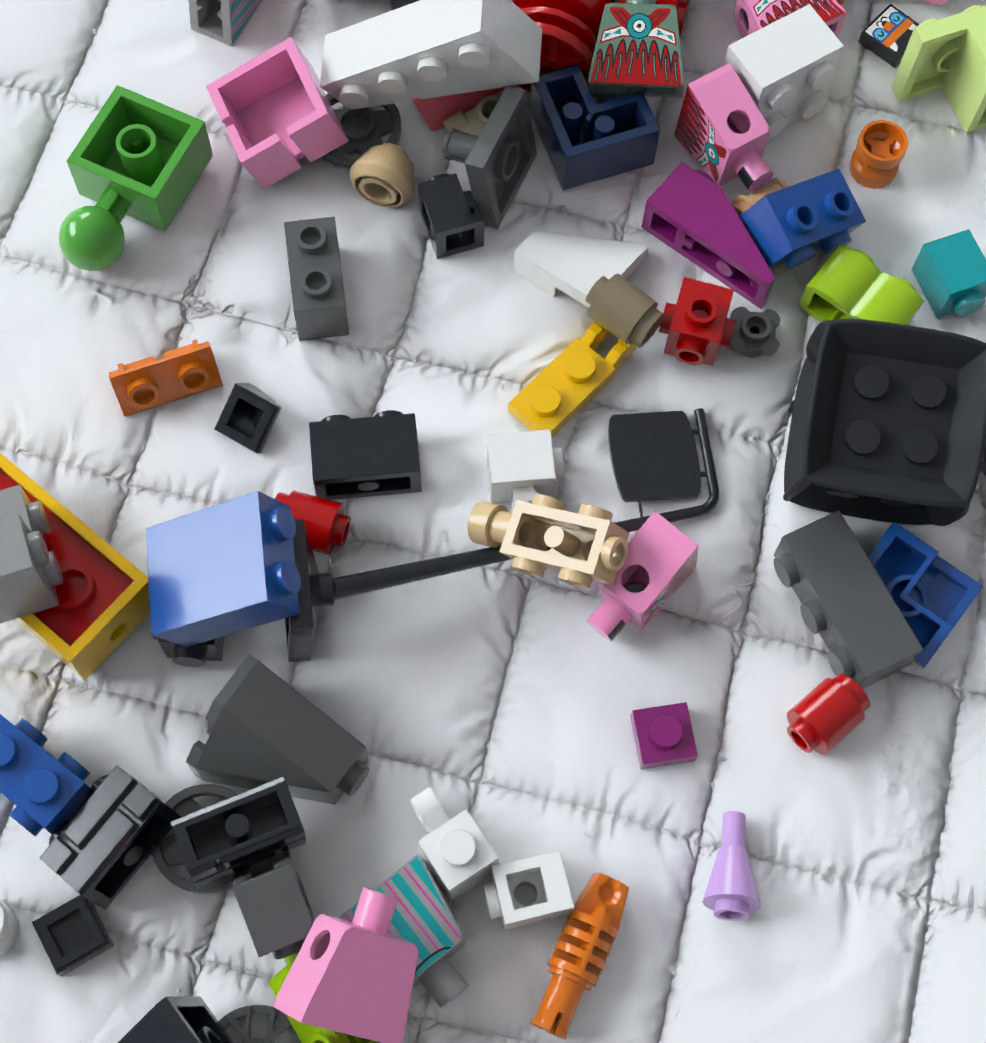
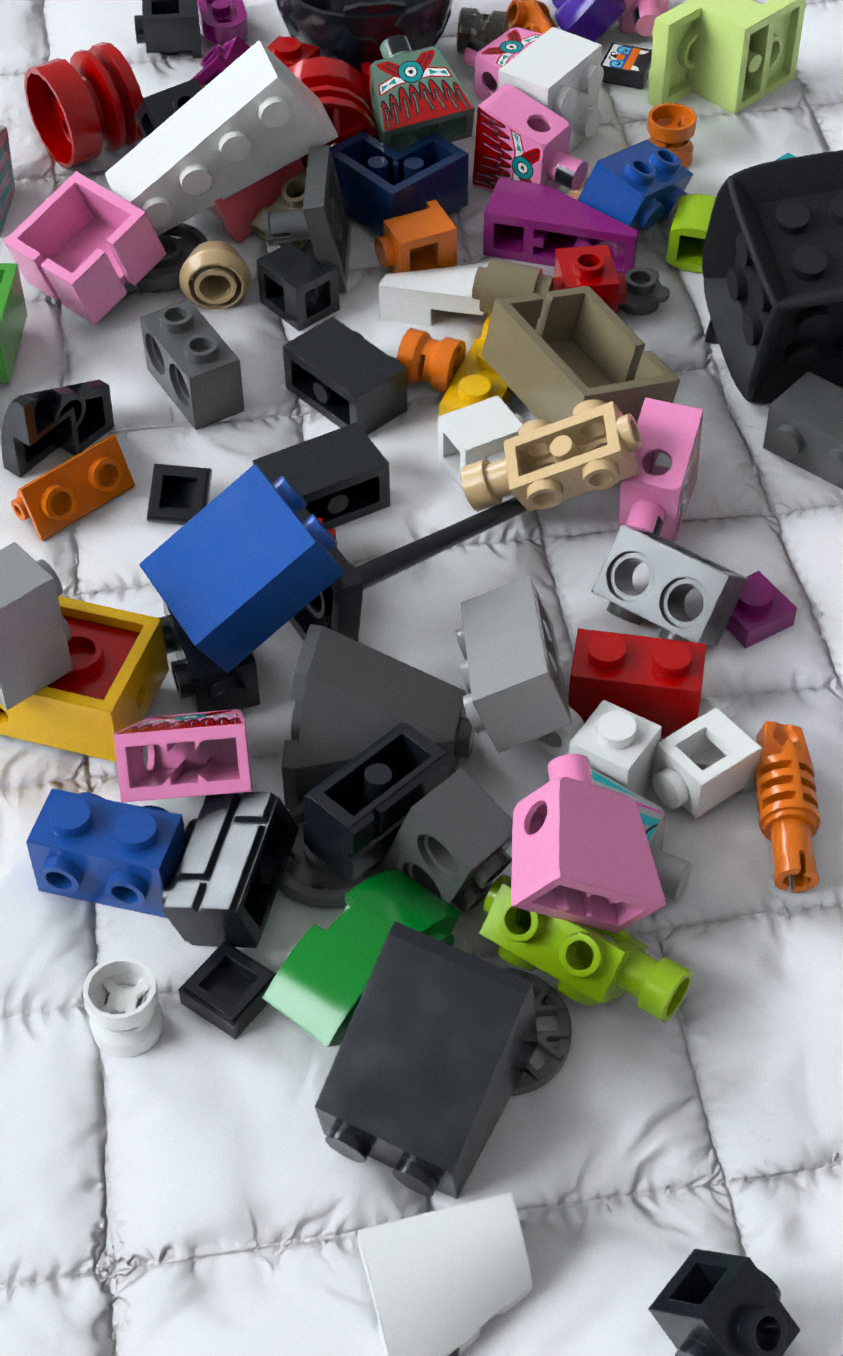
camera: 20 degrees left, 20 degrees down
(114, 723) = (185, 756): none -> bright pink torso
(189, 955) = (331, 967): none -> green brick
(194, 301) = (52, 419): none -> black slope
(415, 737) = (511, 666): none -> light grey brick
(442, 342) = (345, 376): none -> black brick
(515, 786) = (640, 674): none -> red brick
(522, 350) = (430, 358): none -> orange wheel
(579, 204) = (418, 241): none -> orange brick
(593, 698) = (672, 576): none -> brick
(630, 431) = (574, 356): none -> dark tan piece

